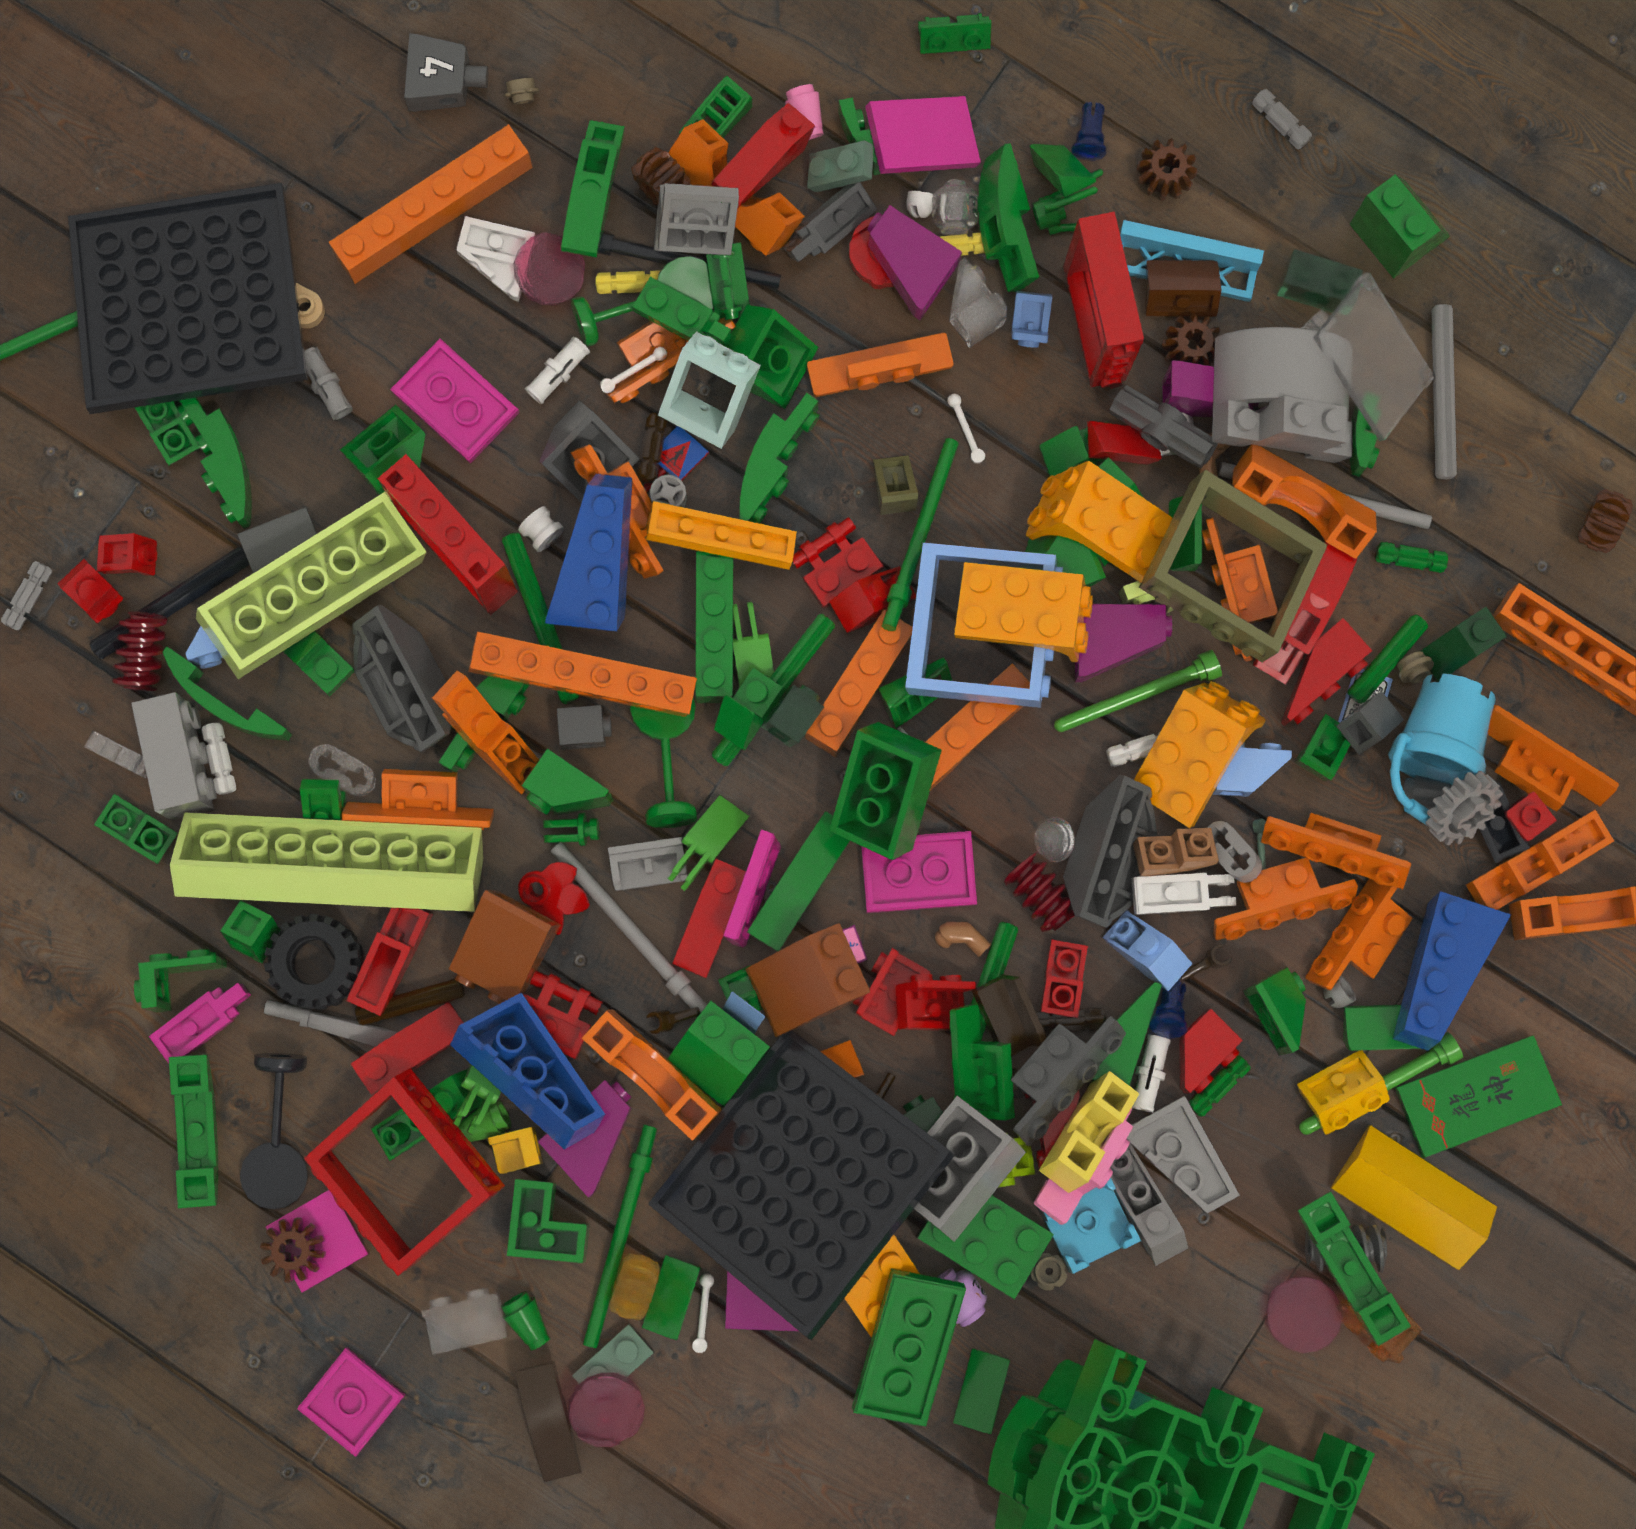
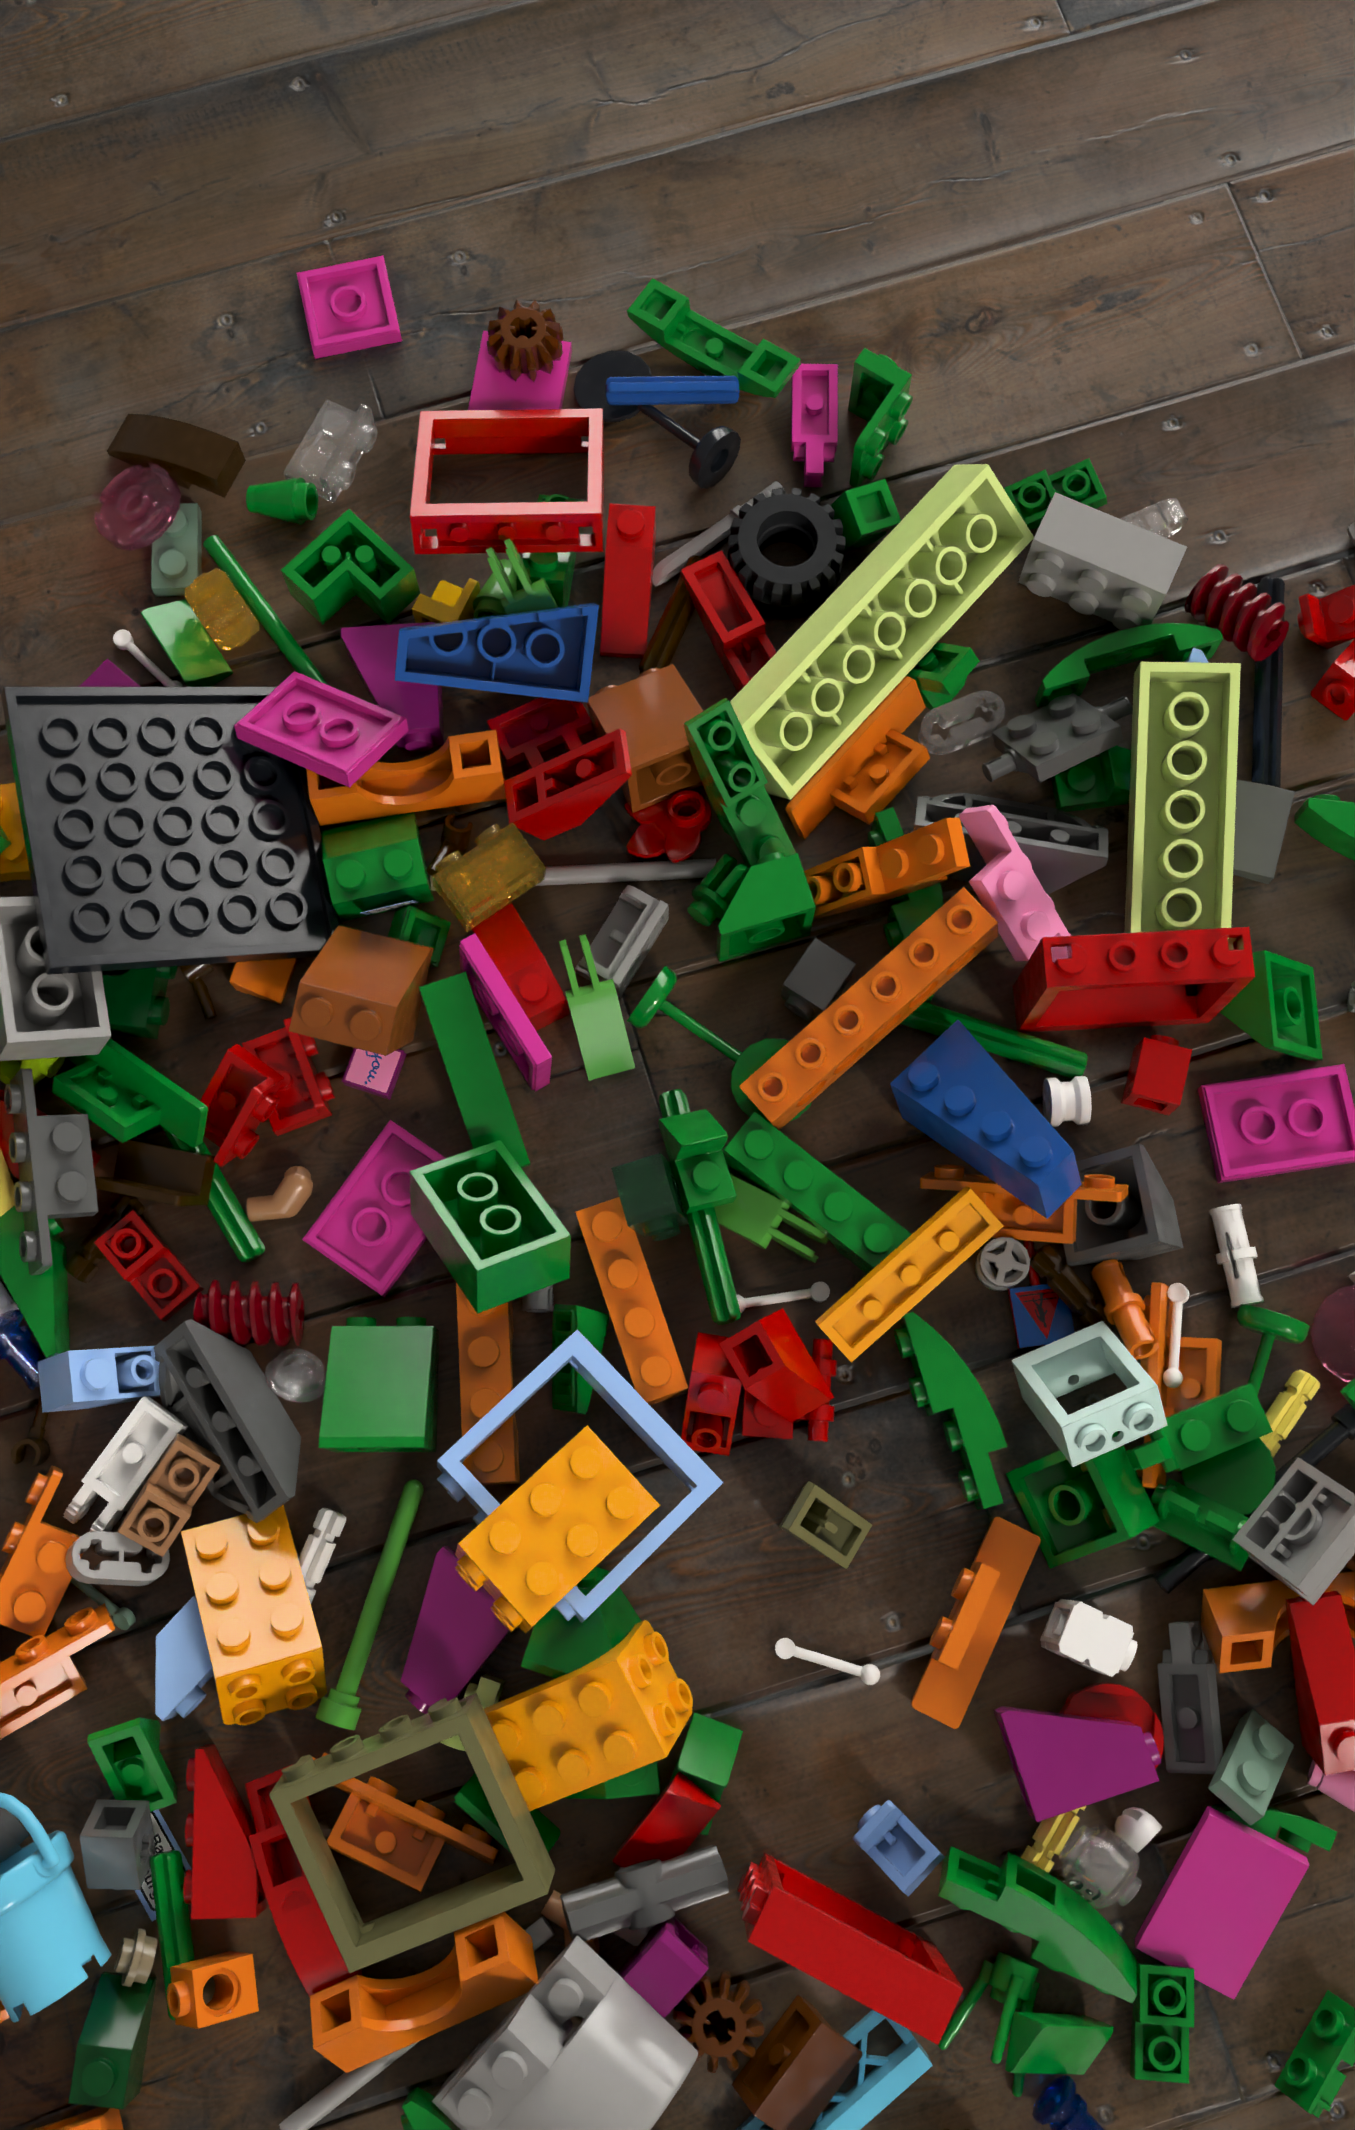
camera: 135 degrees right, 5 degrees down
(219, 758) = (1065, 617): white axle -> none
(252, 1127) = (672, 390): none -> blue axle
(312, 699) = (1056, 737): none -> dark grey plate
(445, 643) = (1010, 886): none -> bright pink bracket
(483, 489) = (1157, 1074): none -> red brick
(506, 854) = (735, 783): none -> green slope
(582, 962) = (568, 787): none -> red slope
(641, 407) = (1124, 1309): none -> orange pin
(665, 1148) = (321, 728): none -> dark pink tile
(675, 970) = (488, 875): none -> clear yellow brick
(766, 588) = (818, 1292): none -> white hinge
(832, 570) = (777, 1366): none -> red slope
(843, 296) = (1089, 1637): none -> white brick
(900, 592) = (690, 1417): green bar -> none
(974, 308) = (961, 1787): clear slope -> none
(1006, 123) = (1162, 2023): none -> green slope
(1022, 782) = (381, 1387): none -> green slope
(1394, 612) = (233, 1995): none -> orange brick
(1411, 557) = (263, 2072): green axle -> none

